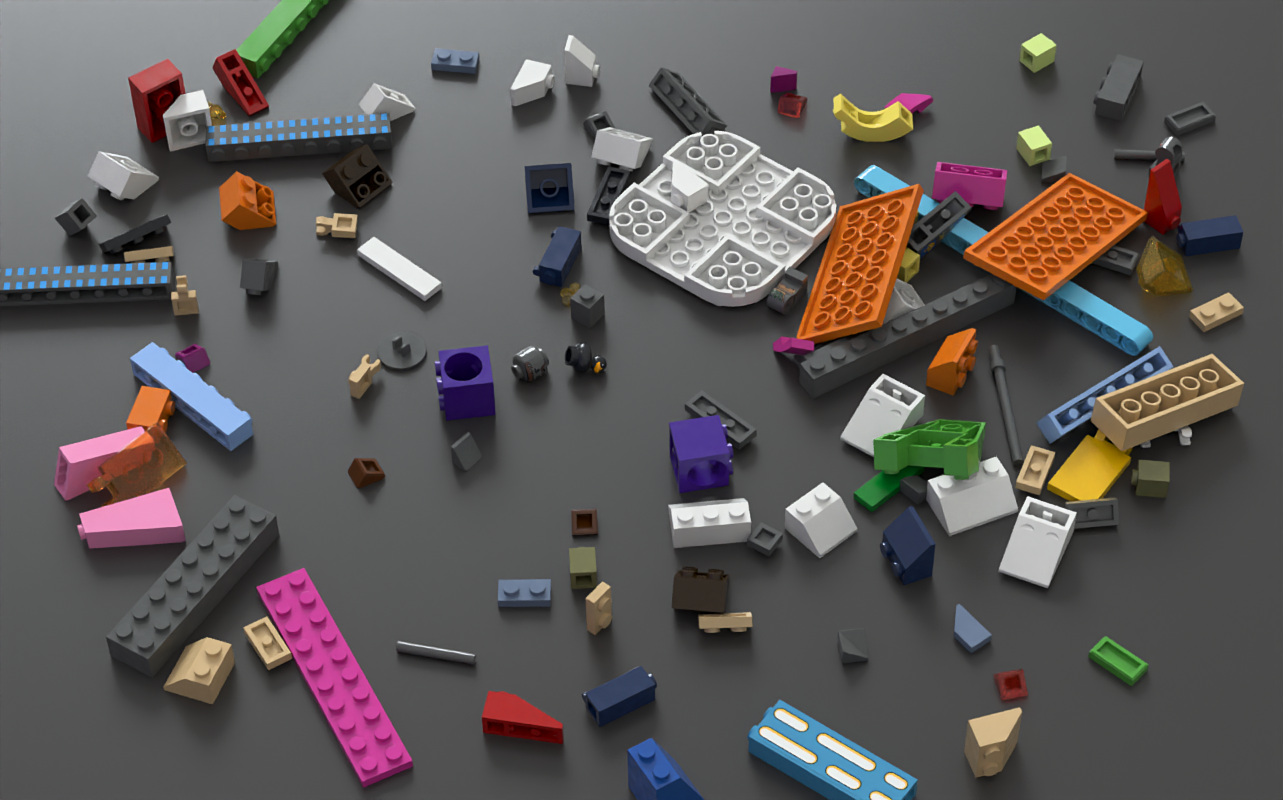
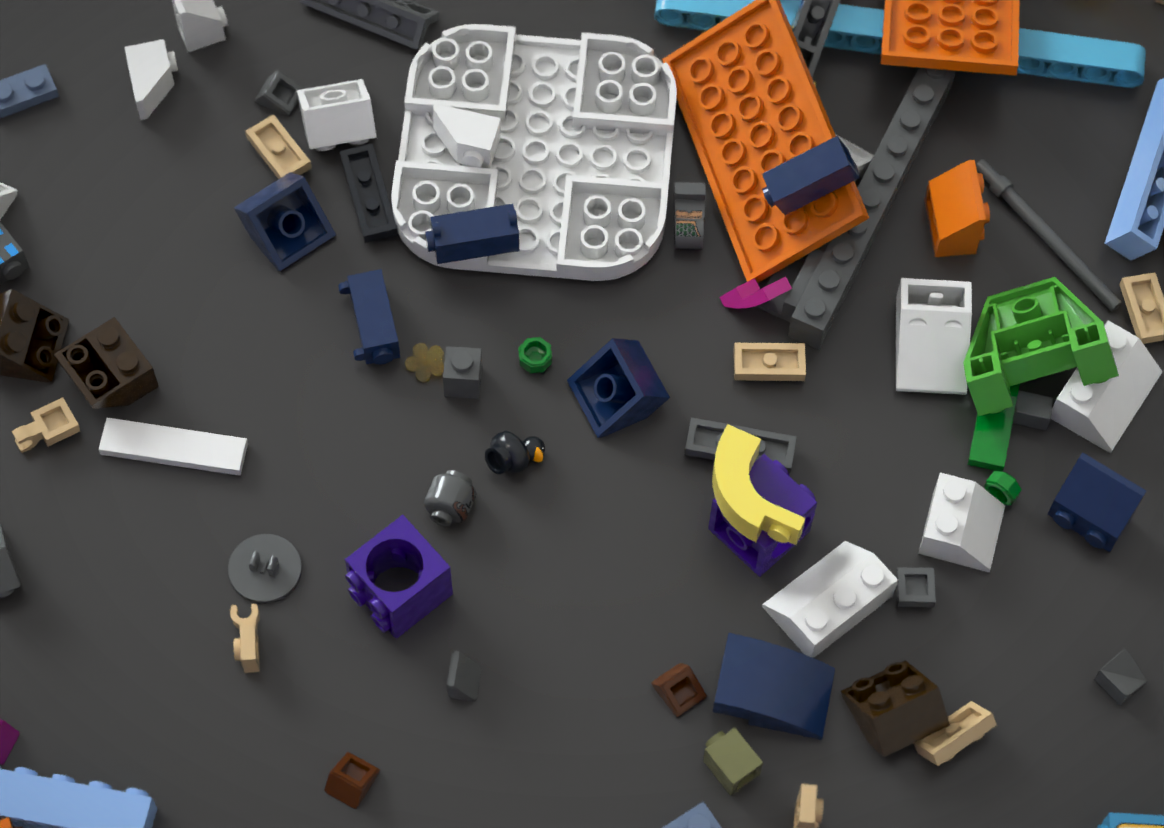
camera: 35 degrees left, 15 degrees up
(391, 211) = (108, 367): none -> dark brown slope
(575, 150) = (277, 148): none -> tan plate
(637, 544) = (773, 687): none -> dark blue slope
(638, 319) = (535, 355): none -> green tile
(645, 234) = (473, 234): none -> dark blue brick
(672, 355) = (617, 387): none -> dark blue slope
(688, 409) = (738, 498): none -> light yellow arch
(774, 386) = (769, 361): none -> tan plate
(861, 286) = (809, 176): none -> dark blue brick
(861, 516) = (1003, 487): none -> green tile

